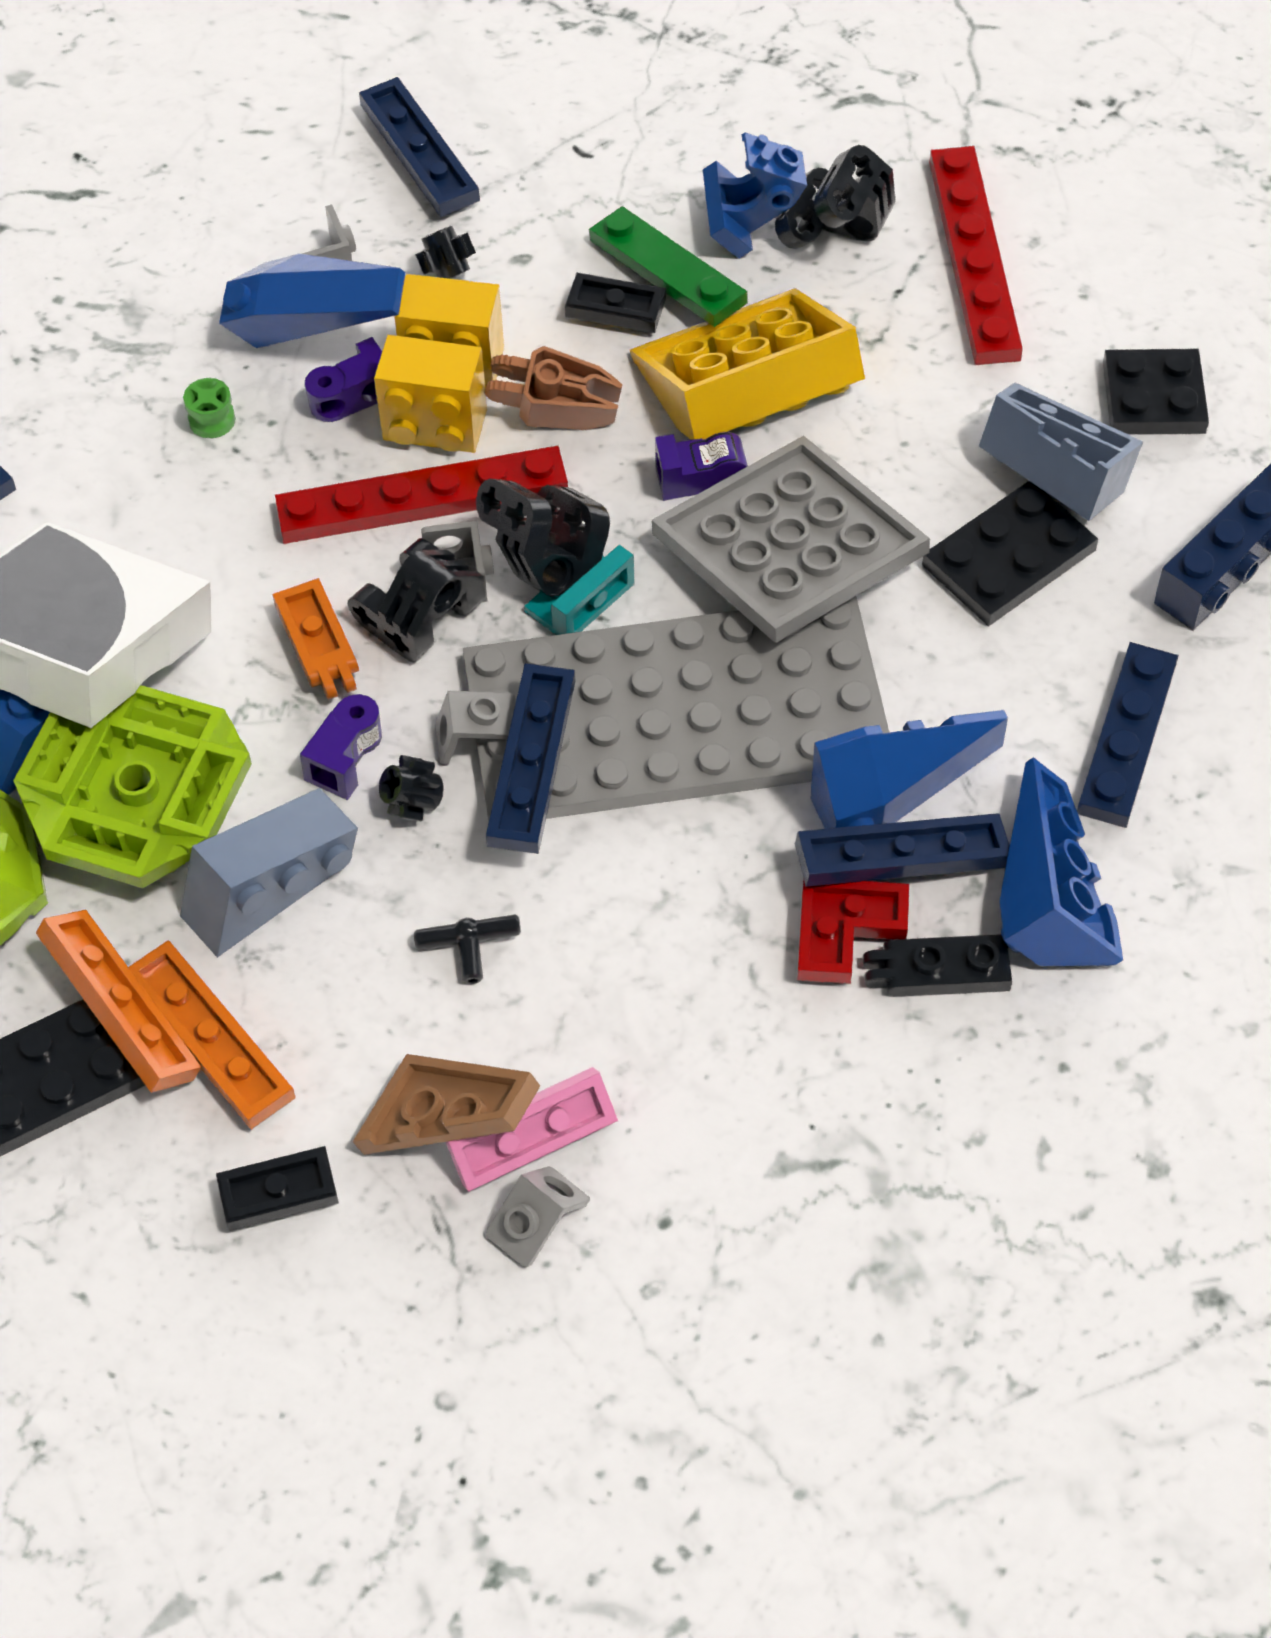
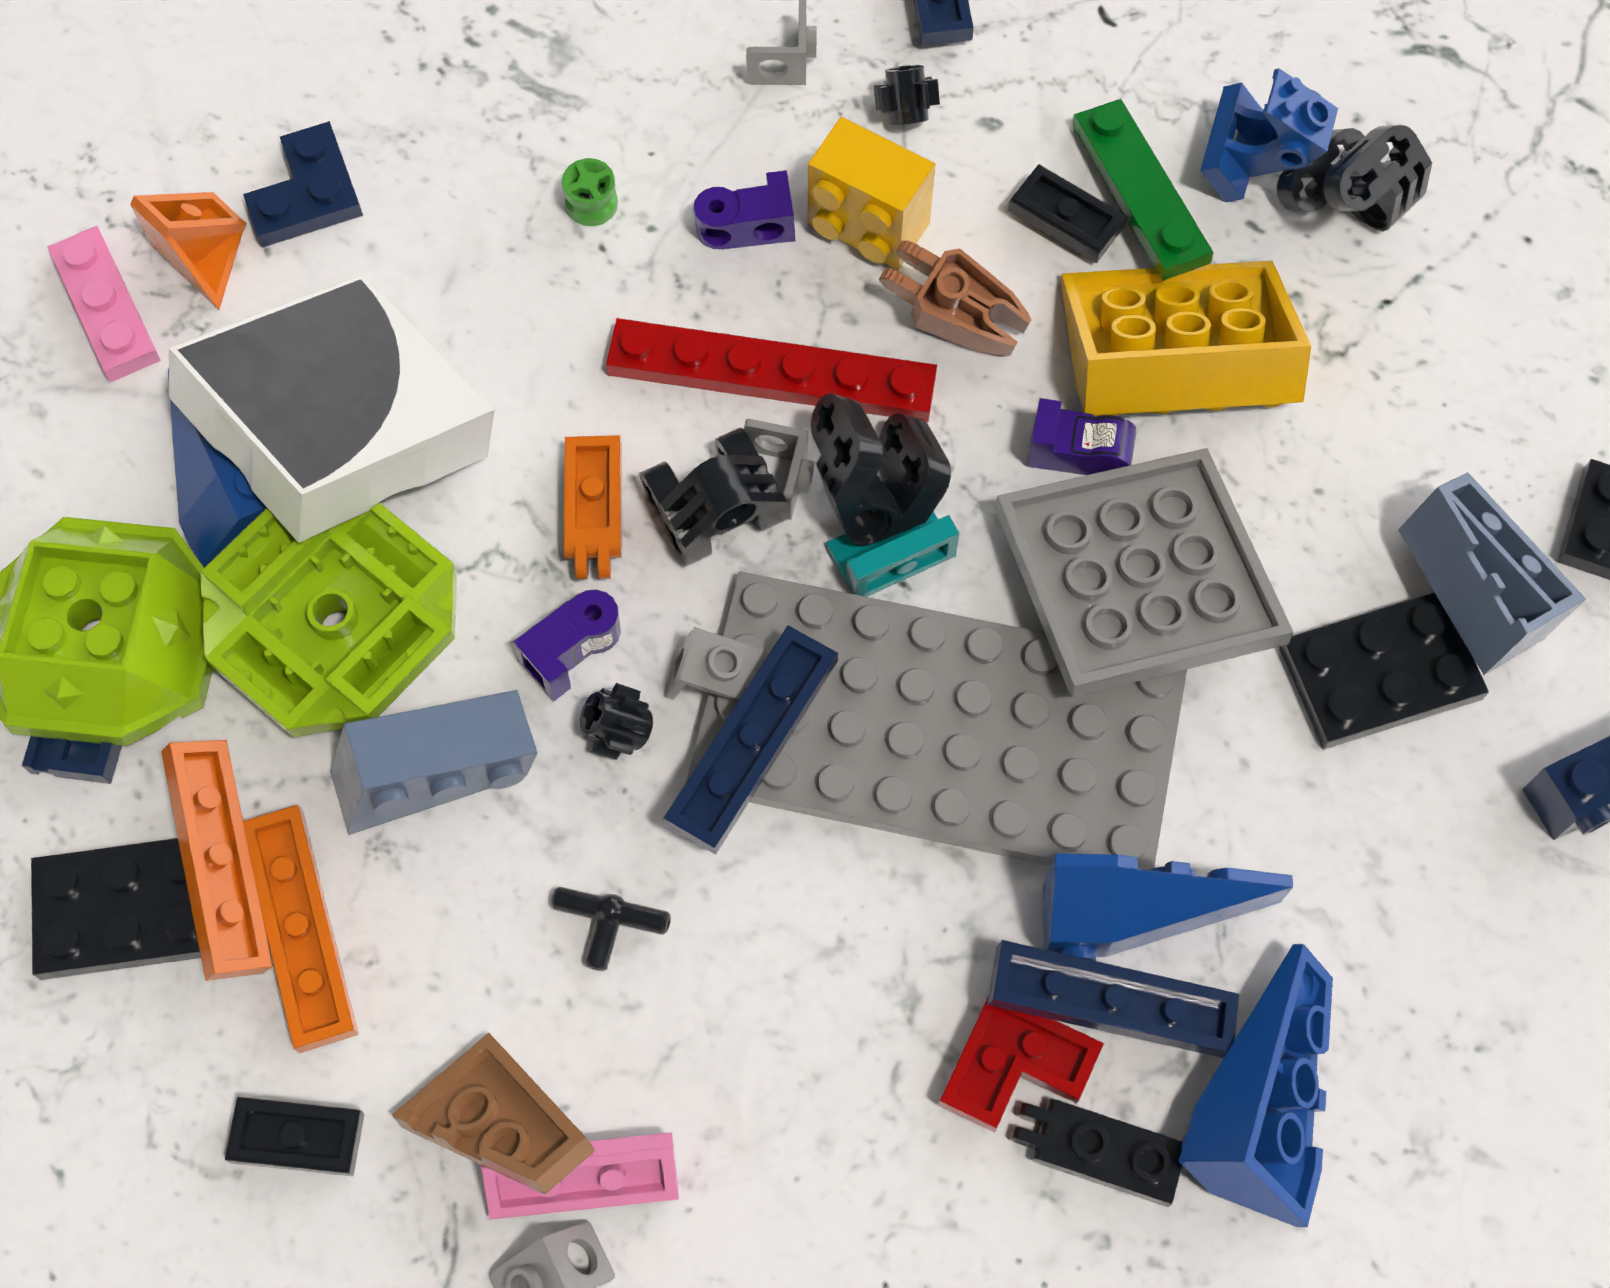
camera: 20 degrees right, 10 degrees up
(308, 297) = (734, 101): blue wedge -> none
(431, 393) = (820, 261): yellow brick -> none
(975, 256) = (1490, 289): red plate -> none
(1127, 735) = (1426, 945): dark blue plate -> none

